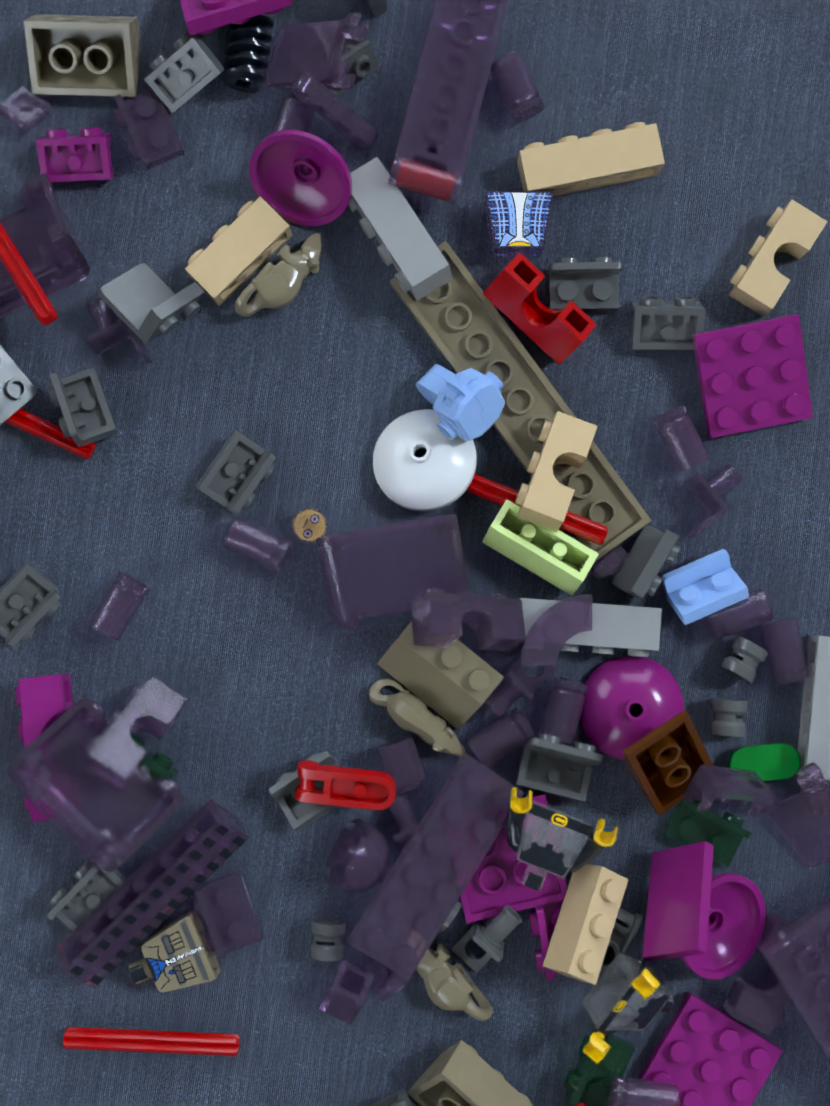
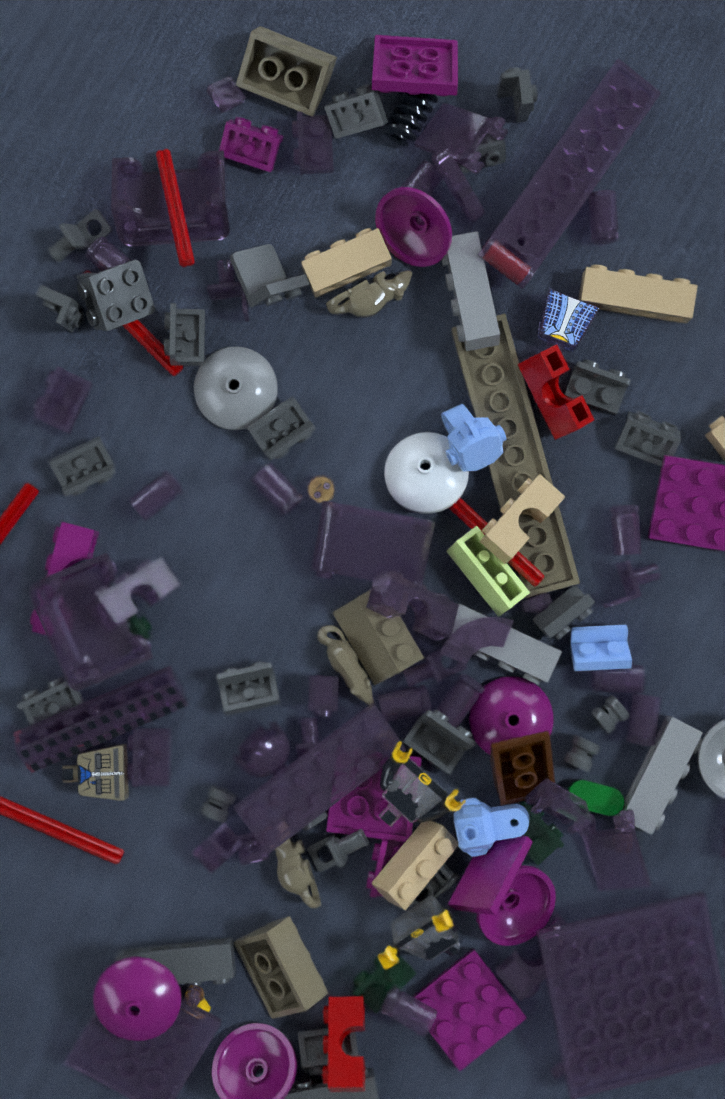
camera: 20 degrees right, 0 degrees up
(185, 458) = (241, 406): none -> light grey dish
(345, 786) = (275, 694): red plate -> none
(647, 847) = (482, 825): none -> light blue piece

